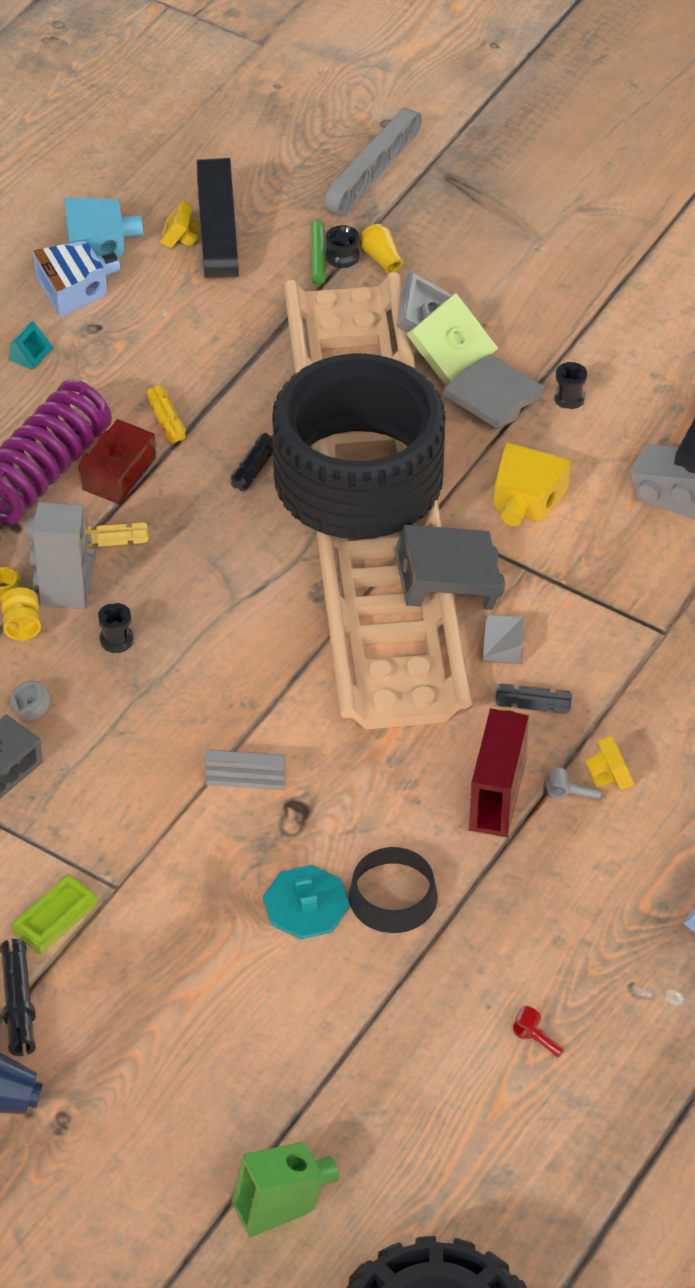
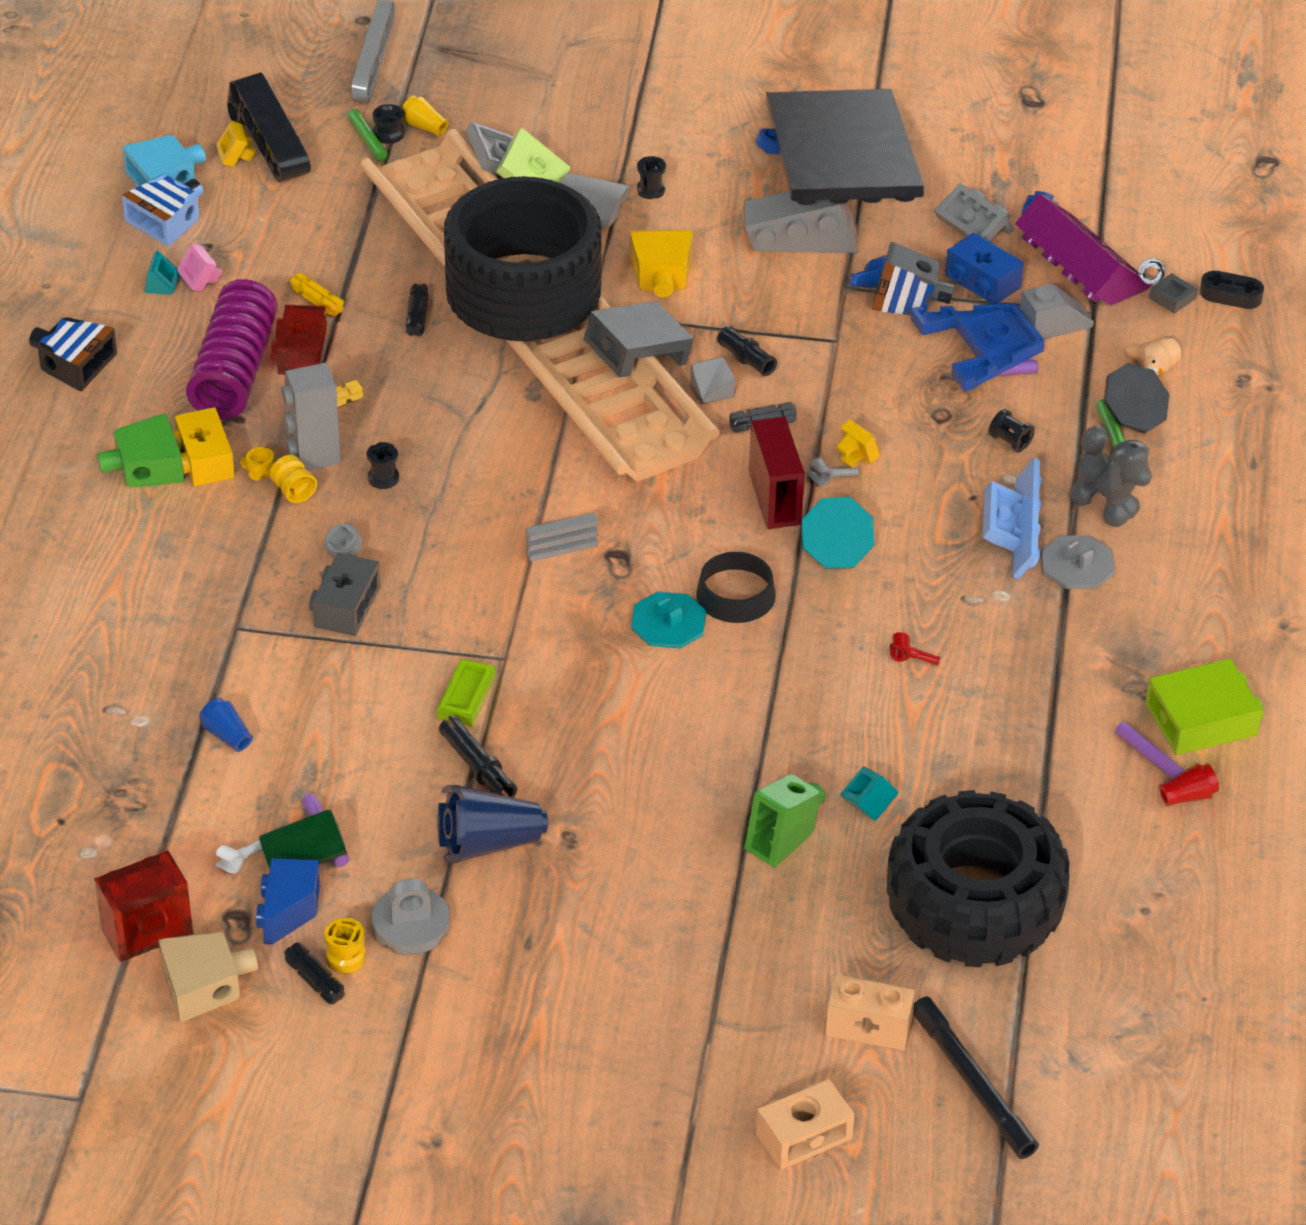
camera: 25 degrees left, 5 degrees down
(67, 351) = (198, 268): none -> bright pink tile
(393, 1188) = (869, 793): none -> teal slope
(530, 864) = (837, 532): none -> teal piece
(559, 616) = (747, 351): none -> black pin

